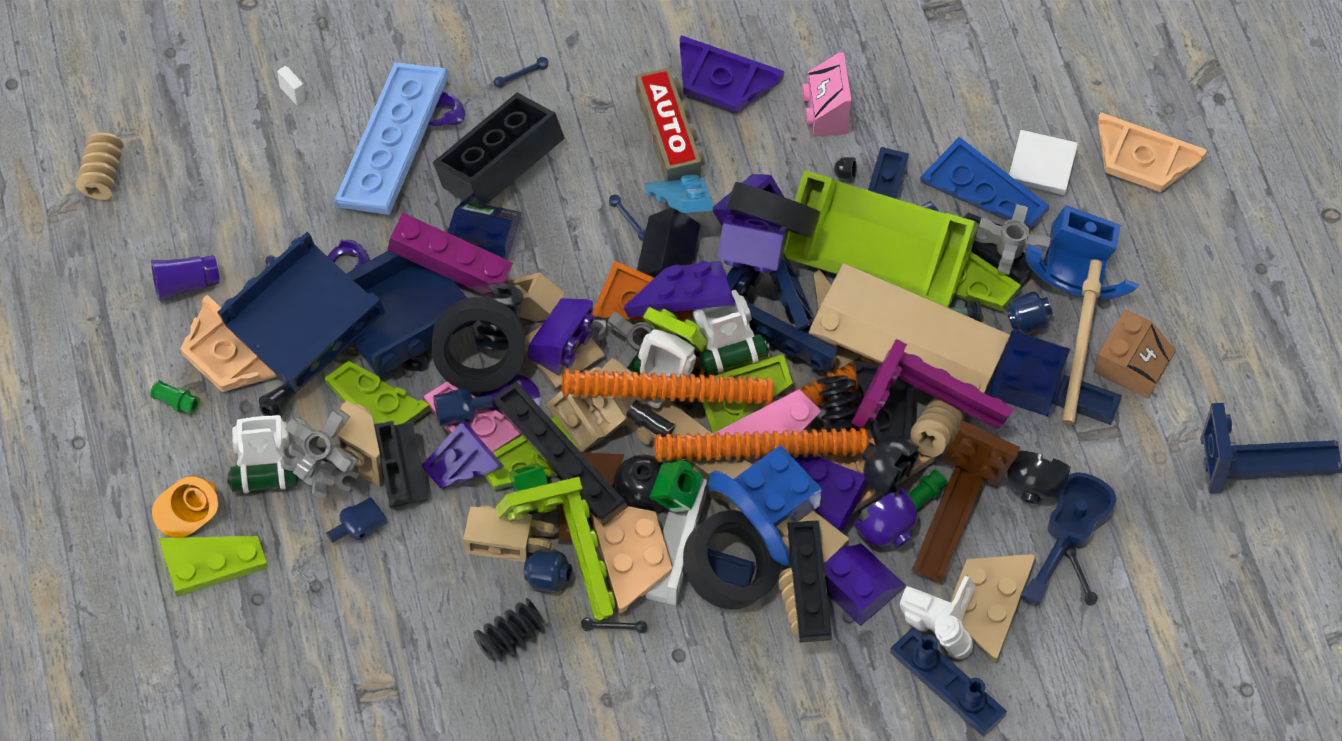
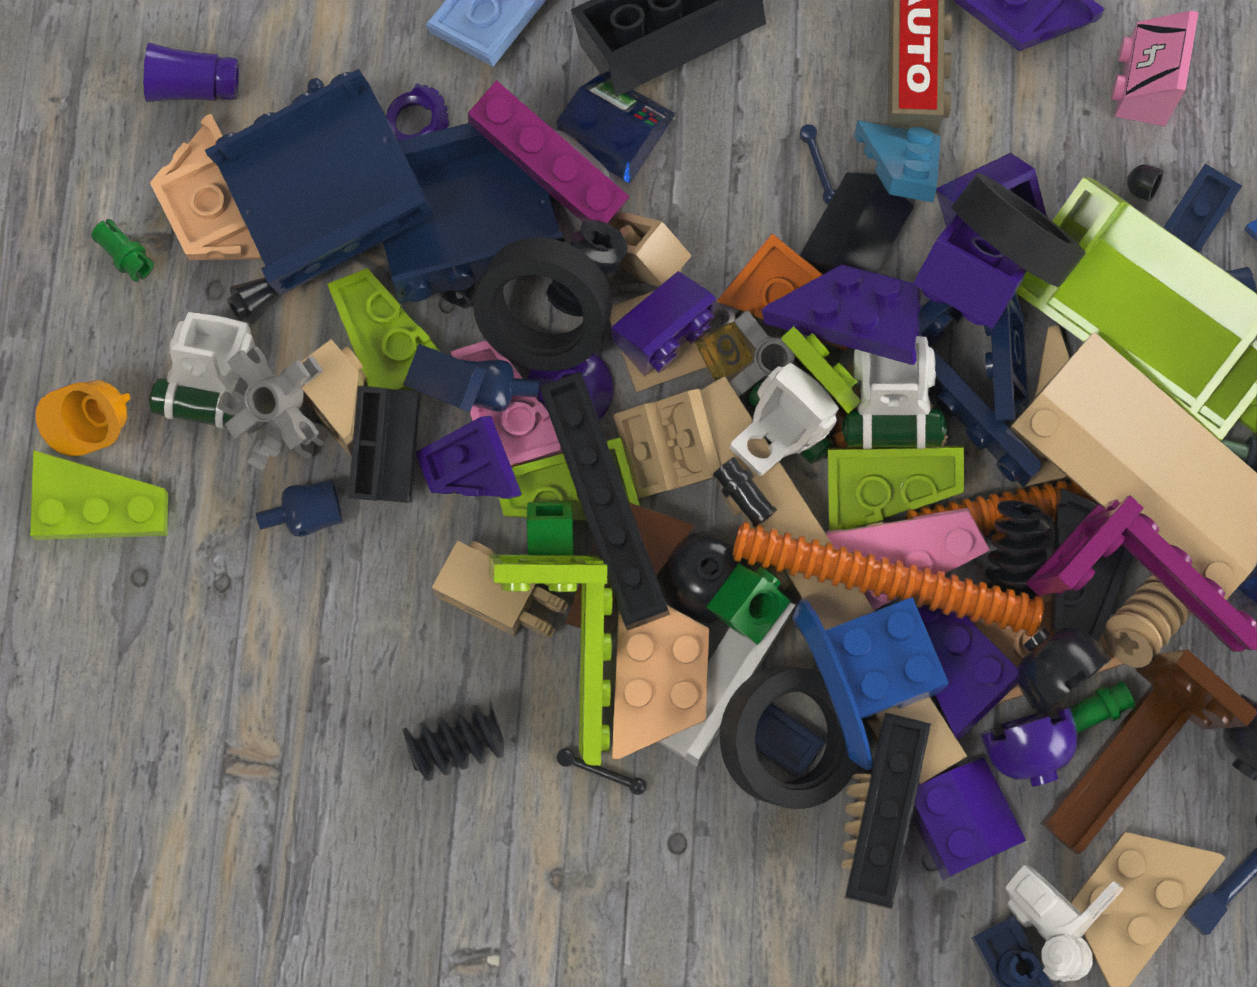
camera: 20 degrees right, 15 degrees up
(428, 406) = (444, 377): none -> dark blue tile
(547, 570) = (534, 666): dark blue head -> none
(606, 344) = (724, 351): none -> clear yellow tile
(667, 386) = (783, 453): orange piece -> none

